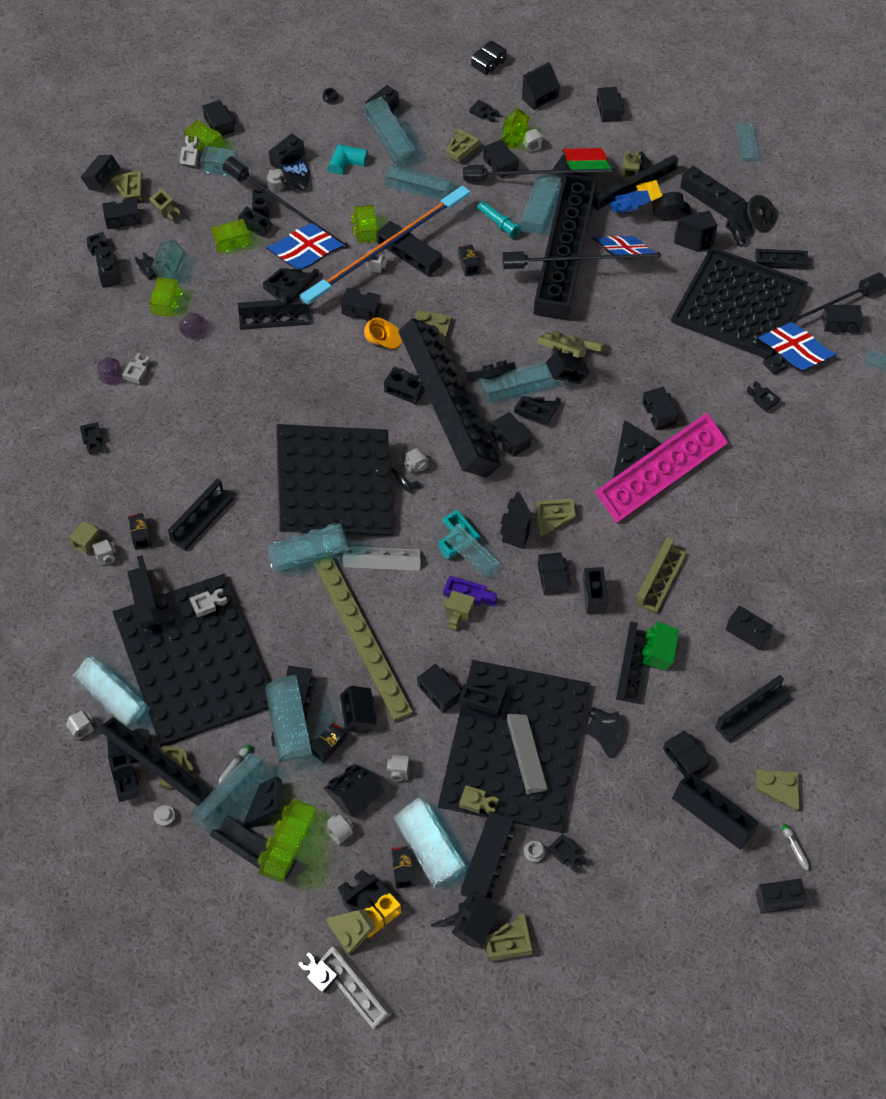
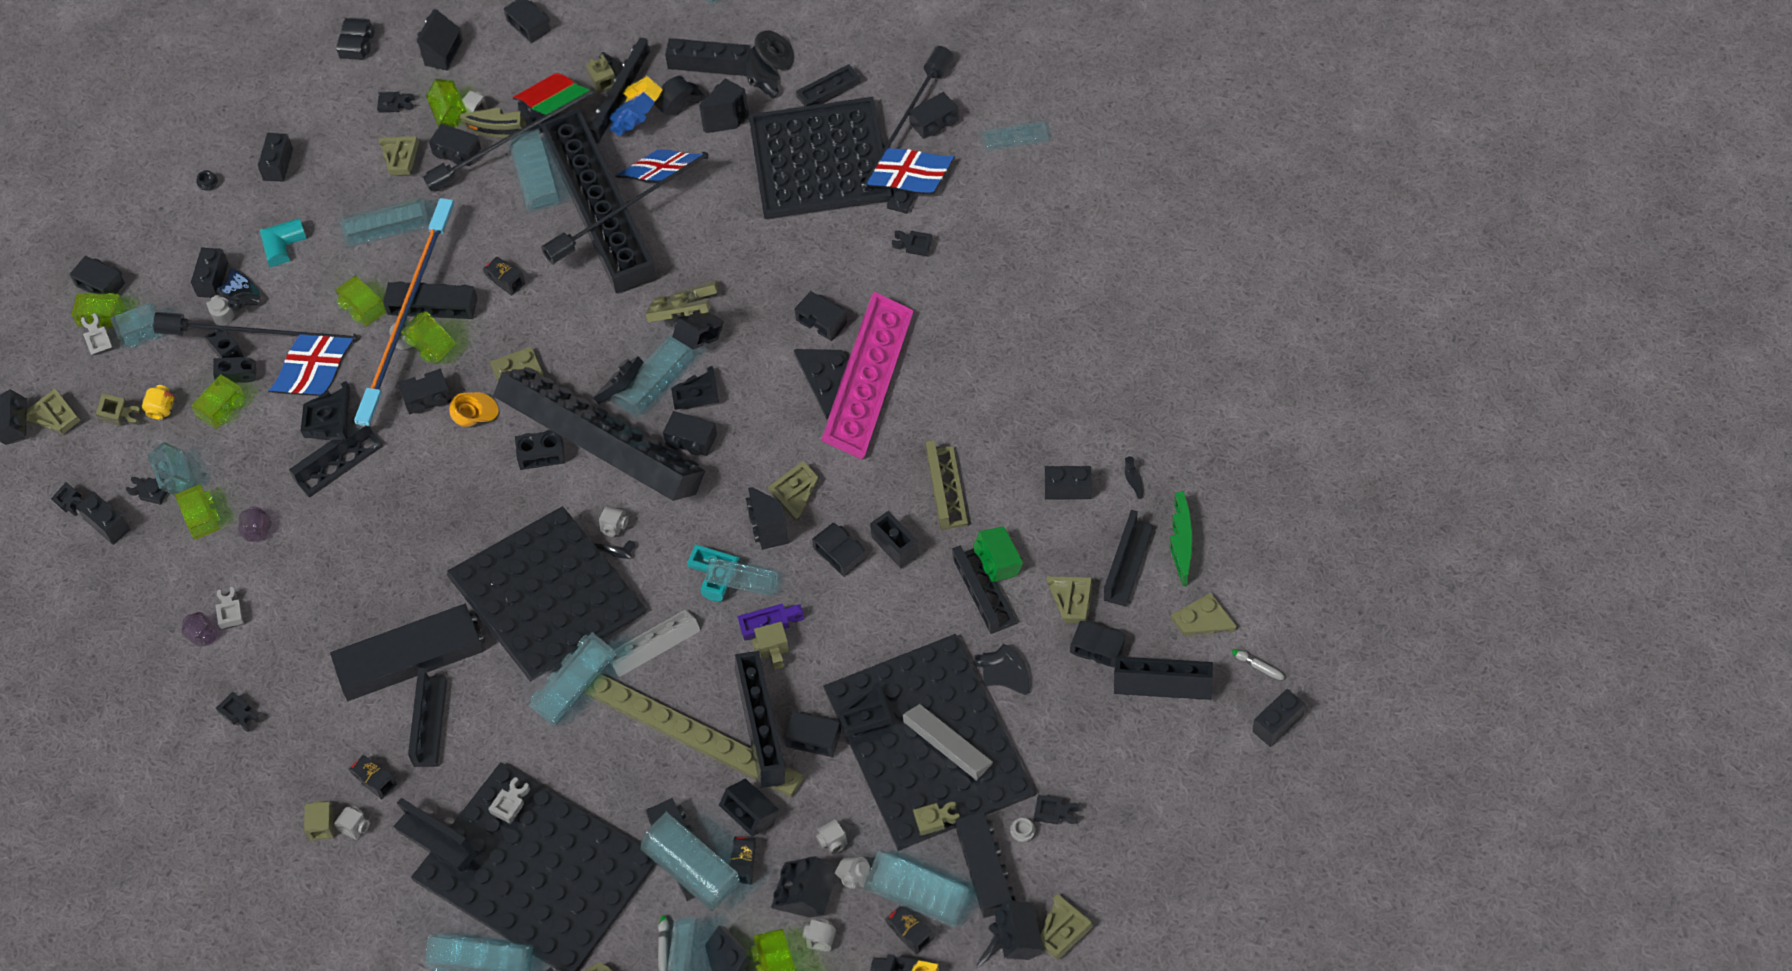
camera: 30 degrees left, 0 degrees up
(121, 213) = (71, 449): black brick -> none
(194, 215) = (158, 402): none -> yellow head
(211, 460) = (401, 651): none -> black brick
(387, 270) = (428, 338): none -> clear neon green brick
(389, 131) = (309, 183): clear light blue brick -> none
(394, 800) = (853, 871): none -> light grey plate
(408, 654) = (759, 719): none -> black brick
(504, 222) = (510, 213): teal pin -> none
(536, 157) = (493, 122): none -> olive slope
(692, 710) = (1071, 597): none -> olive wing
(801, 653) = (1133, 476): none -> black bar
(802, 722) = (1181, 542): none -> green slope

